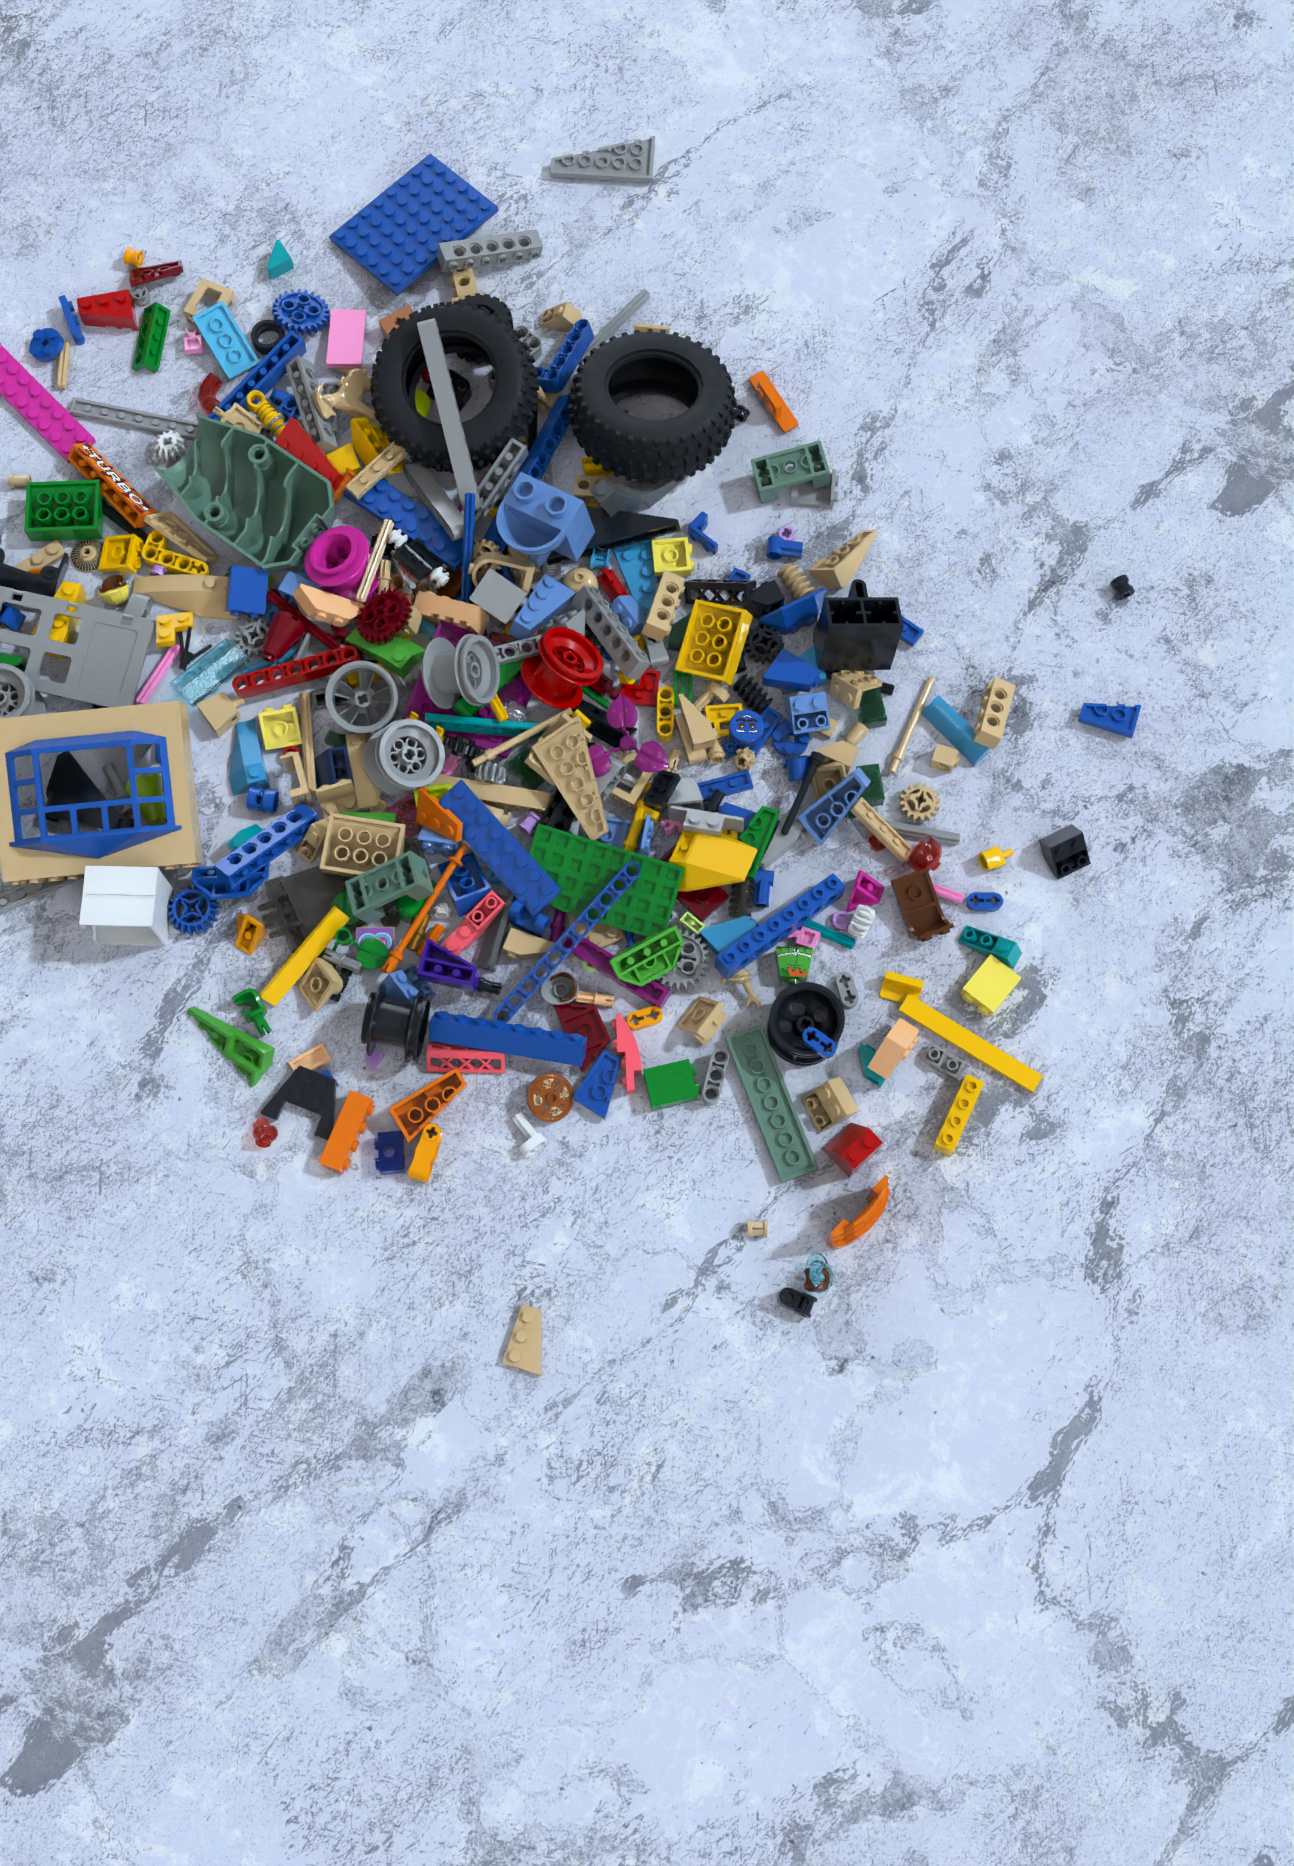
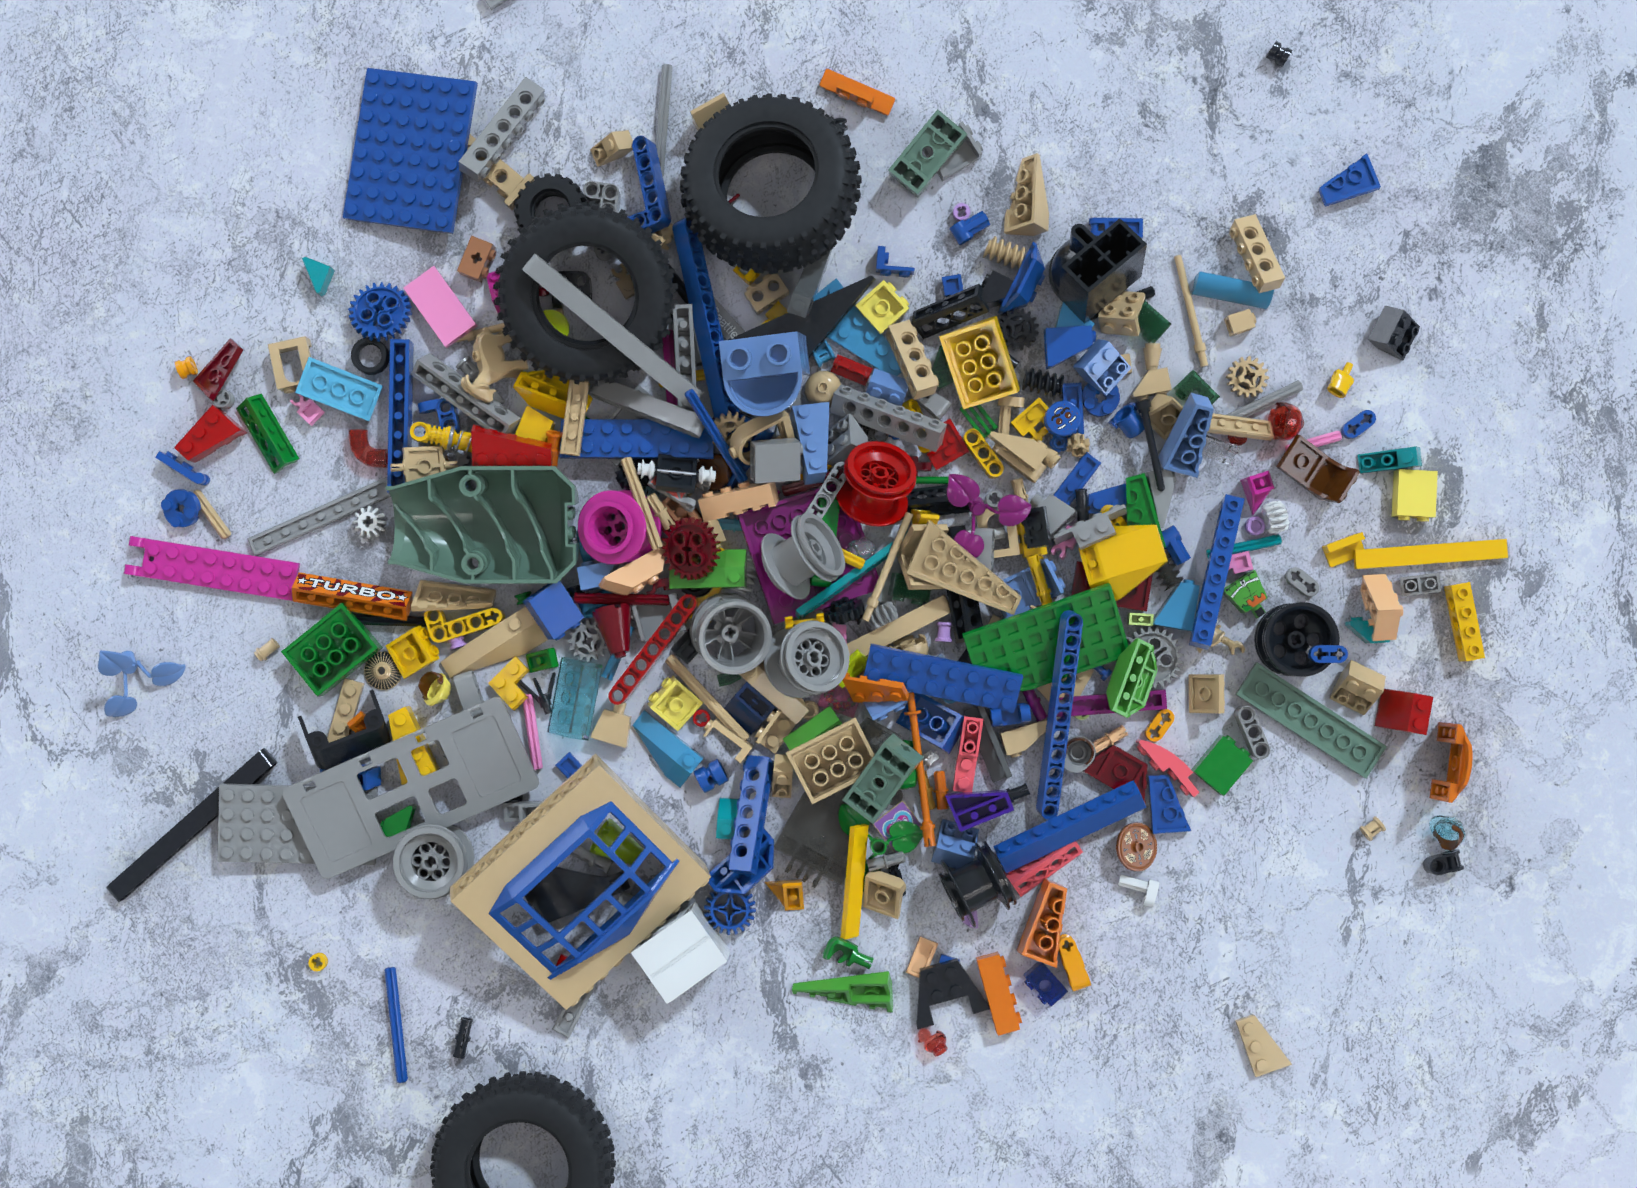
camera: 35 degrees left, 15 degrees up
(210, 628) = (542, 660): none -> green slope

